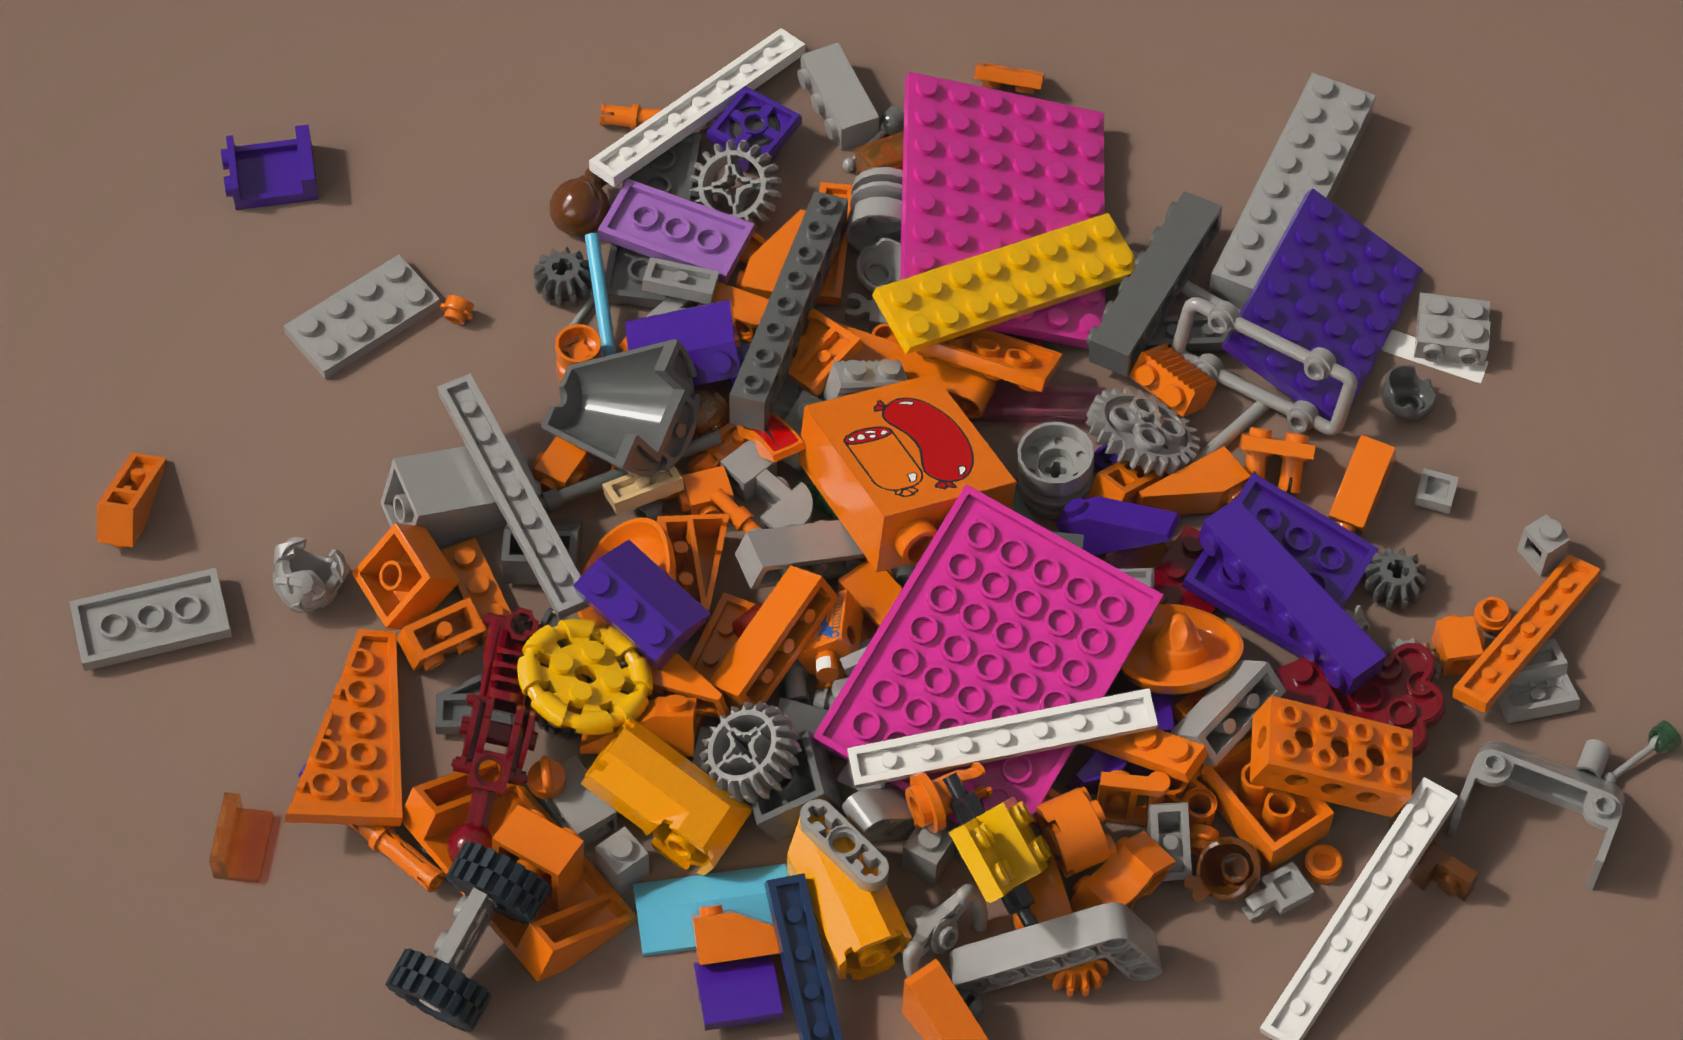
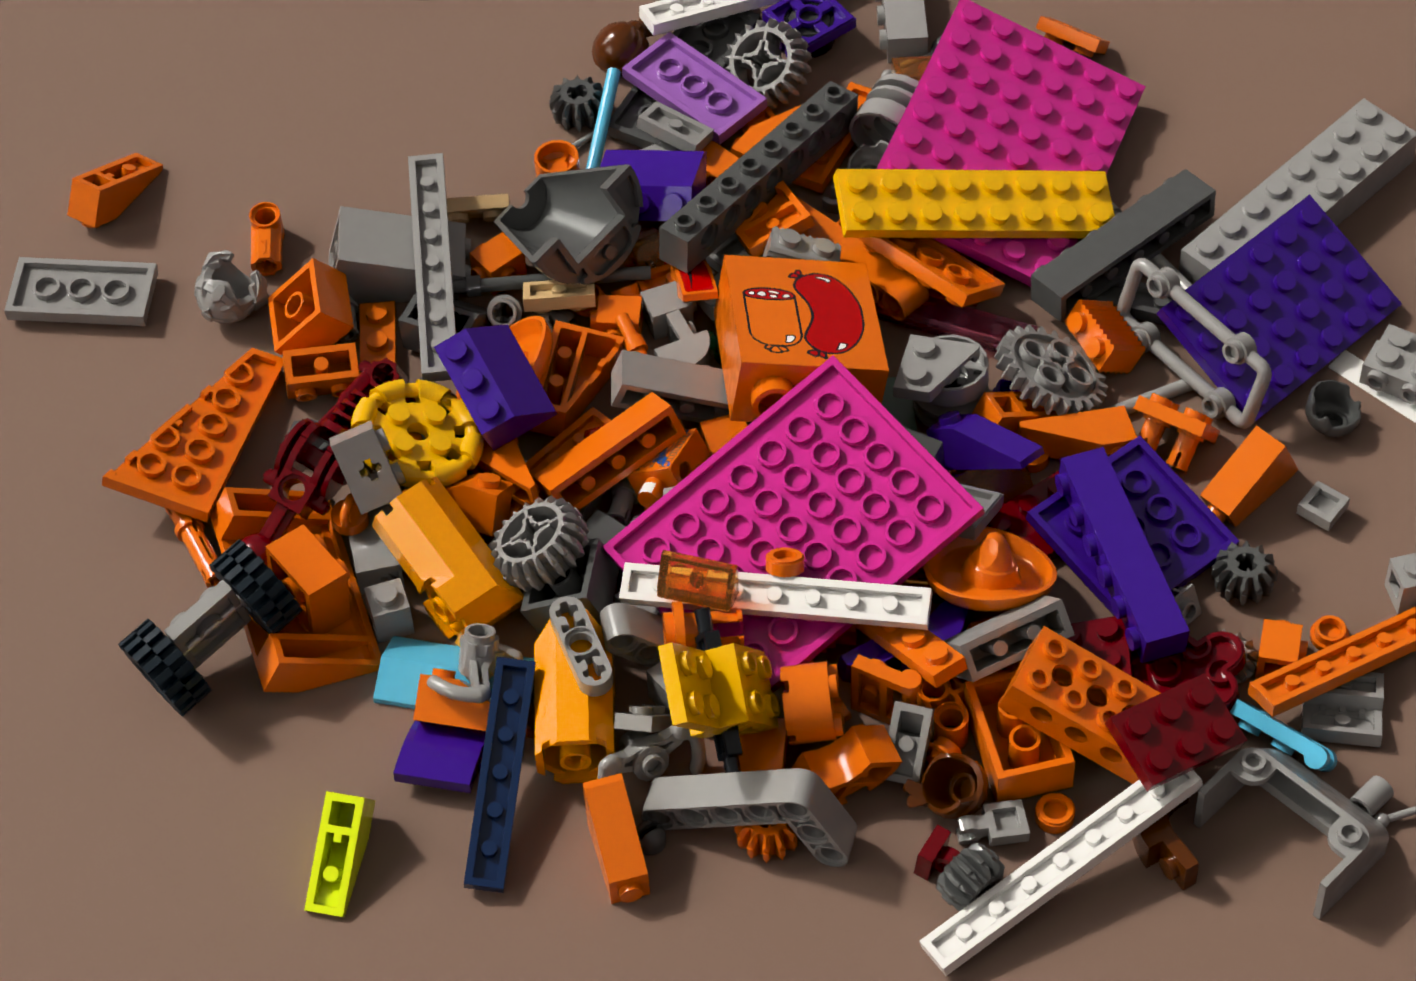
camera: 25 degrees right, 5 degrees down
(240, 841) = (65, 495): clear orange panel -> none
(316, 509) = (266, 238): none -> orange piece
(362, 316) = (388, 93): light grey plate -> none
(457, 309) = (472, 107): orange plate -> none
(526, 413) = (484, 206): none -> tan plate
(570, 747) = (367, 488): none -> light grey brick
(600, 526) = (497, 310): none -> light grey cone
(741, 888) = (477, 663): none -> light grey piece
(922, 895) = (643, 718): none -> light grey plate
(930, 748) = (697, 581): none -> clear orange slope
(1000, 703) = (784, 562): none -> orange tile
(1042, 462) = (930, 366): none -> light grey wing
(1240, 940) = (935, 853): none -> dark red tile
(1282, 952) = (970, 875): none -> dark grey gear
(1421, 759) = (1175, 732): none -> dark red plate
(1498, 727) = (1285, 737): none -> medium azure plate

